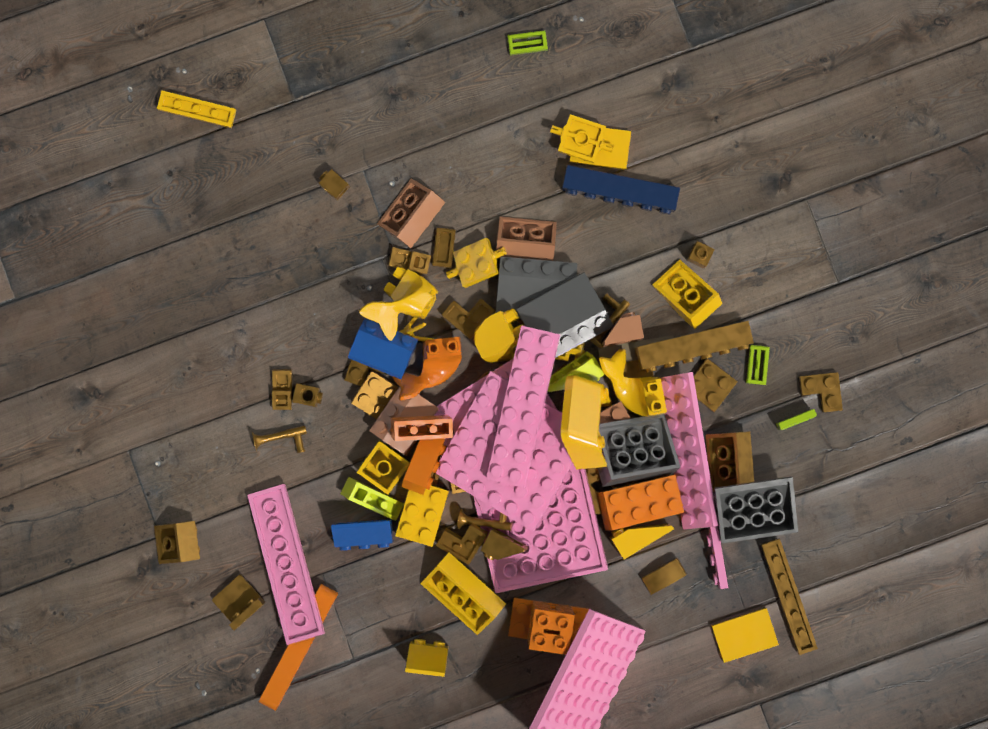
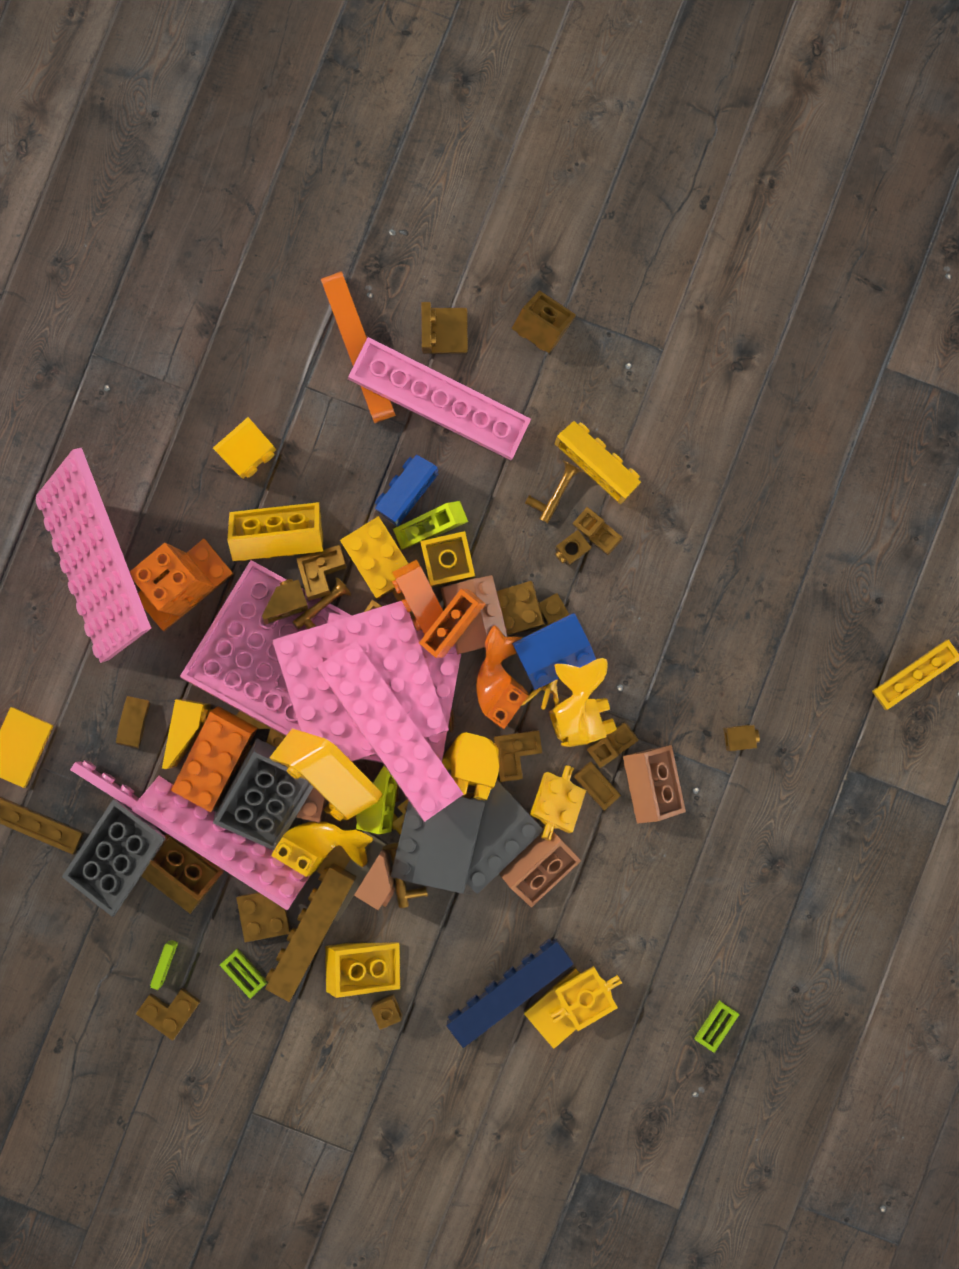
camera: 130 degrees right, 0 degrees up
(238, 427) = (597, 461): none -> yellow slope

